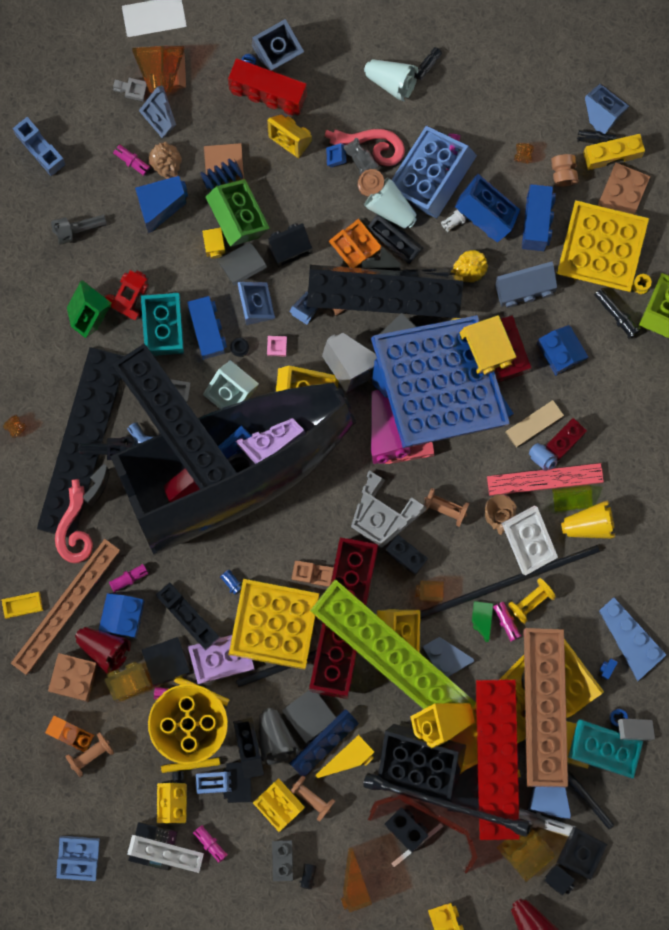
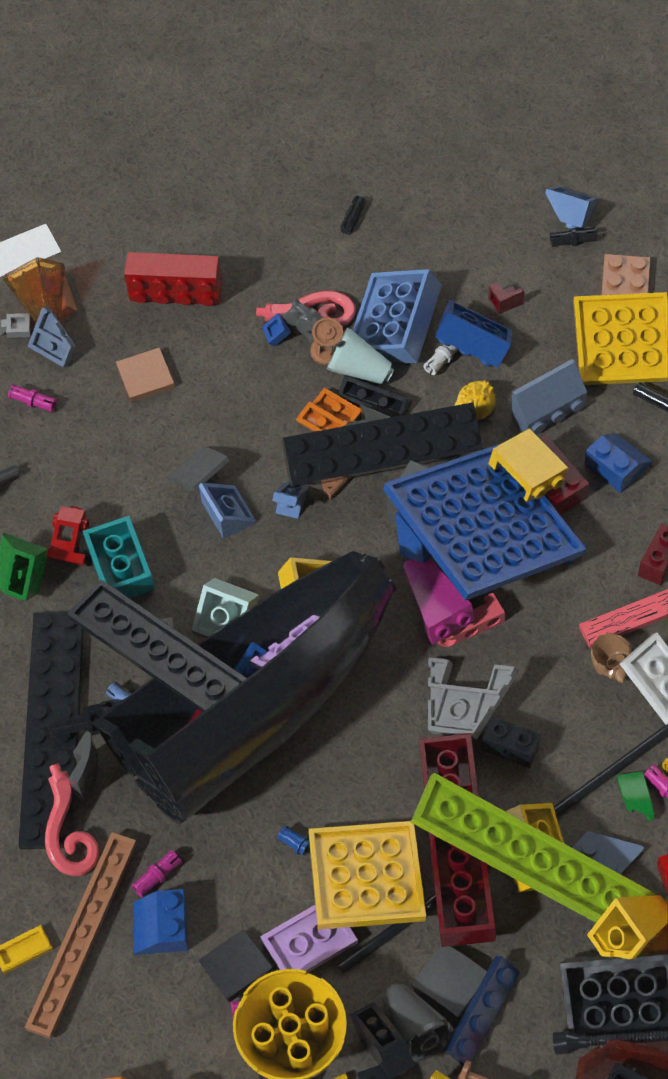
camera: 10 degrees left, 20 degrees down
(73, 677) = (115, 1021): nougat brick -> none
(103, 648) = (147, 969): dark red cone -> none
(128, 682) = (192, 1003): clear yellow brick -> none
(161, 200) = (79, 426): blue slope -> none
(165, 160) = (73, 386): medium nougat hair -> none
(187, 616) = (247, 899): black slope -> none
(207, 327) = (175, 551): blue brick -> none
(214, 243) = (157, 457): yellow brick -> none
(221, 175) = (144, 380): dark blue piece -> none
(237, 212) = (176, 414): bright green brick -> none
(239, 347) = (222, 563): black plate -> none
(276, 45) = (169, 227): sand blue slope -> none
(277, 346) = (268, 549): bright pink plate -> none
(289, 135) = (212, 320): yellow slope -> none
(289, 244) = (250, 432): black slope -> none
(312, 573) = (395, 802): nougat slope -> none
(349, 361) = (363, 531): light grey slope -> none
(352, 756) = (523, 1019): yellow slope -> none
(393, 77) = (316, 234): light aqua cone -> none
(430, 591) = (556, 778): clear orange brick -> none
(446, 507) = (542, 672): nougat hose -> none
(523, 178) = (505, 299): none -> dark red panel
(524, 153) = (495, 270): clear orange wheel -> none
(534, 423) = (615, 550): tan tile -> none
(538, 217) = (537, 327): blue brick -> none
(543, 457) = (640, 581): medium blue brick -> none
(564, 167) = (550, 275): nougat wheel -> none
(605, 152) = (583, 248): yellow arch -> none

